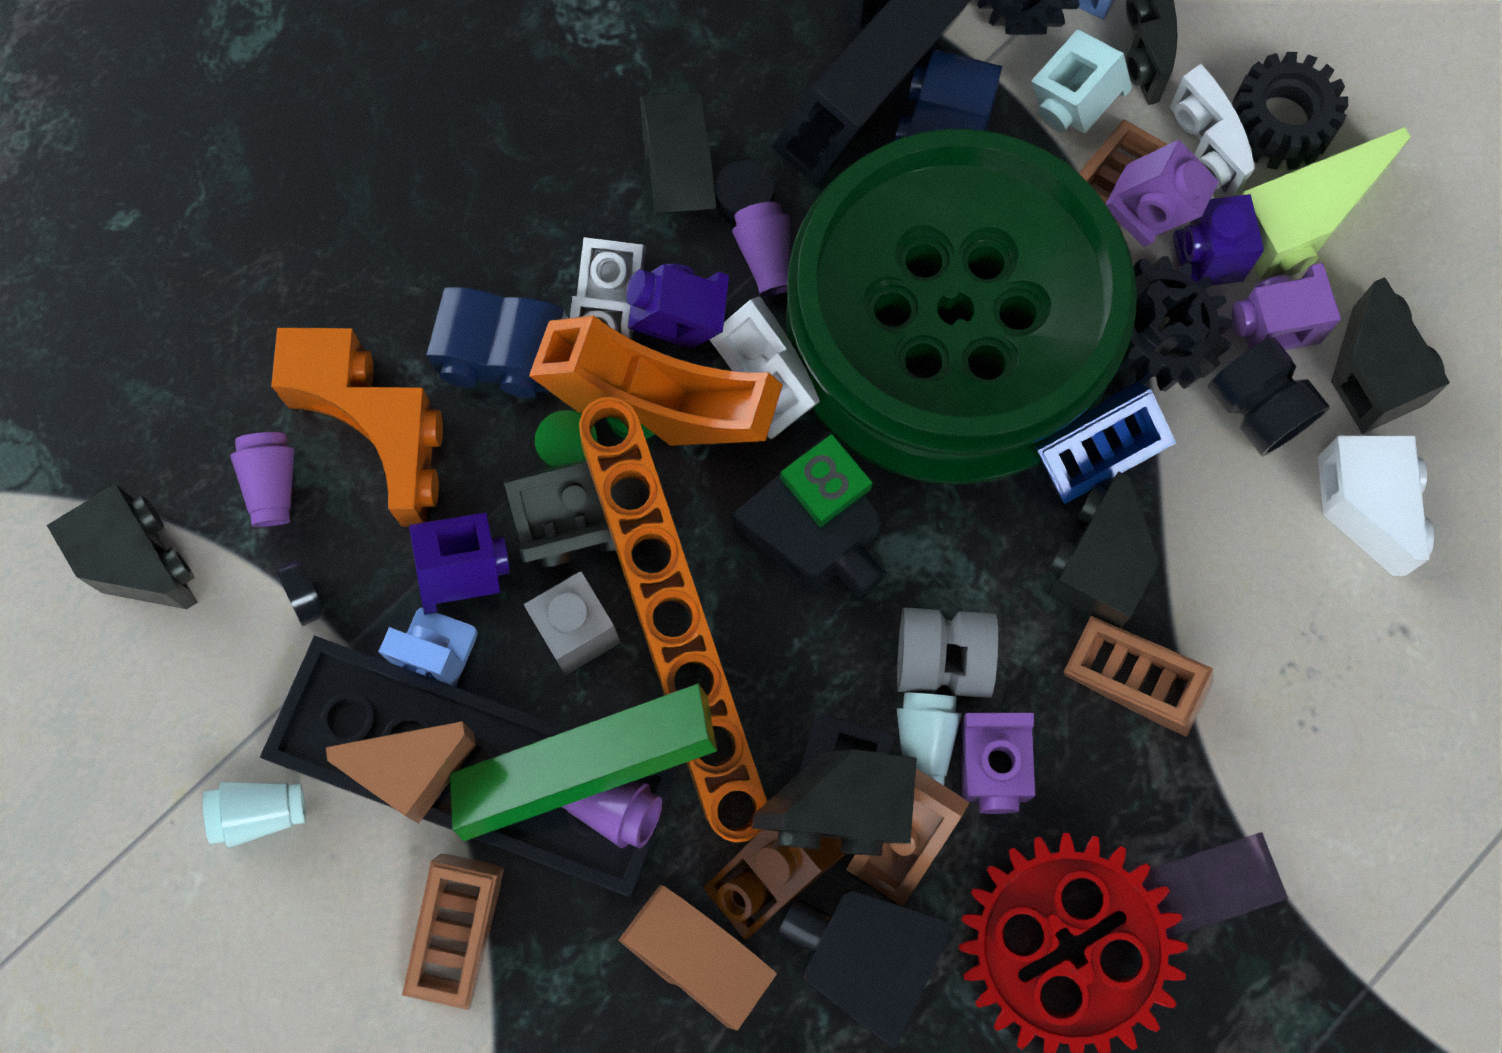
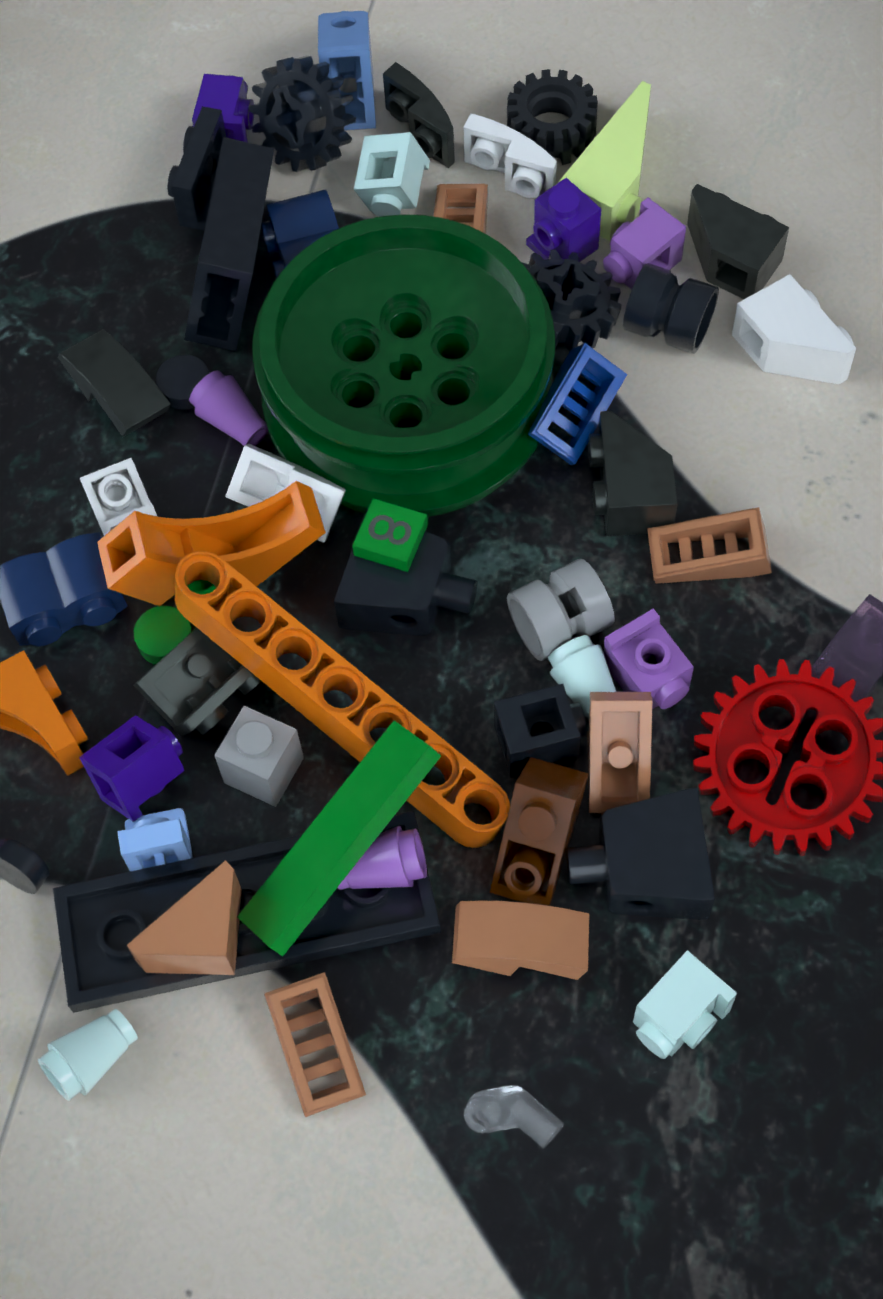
camera: 30 degrees left, 10 degrees down
(677, 304) = (188, 482): dark purple brick -> none
(846, 797) = (562, 735): pearl dark grey slope -> none
(1161, 192) = (504, 204): medium lavender brick -> none

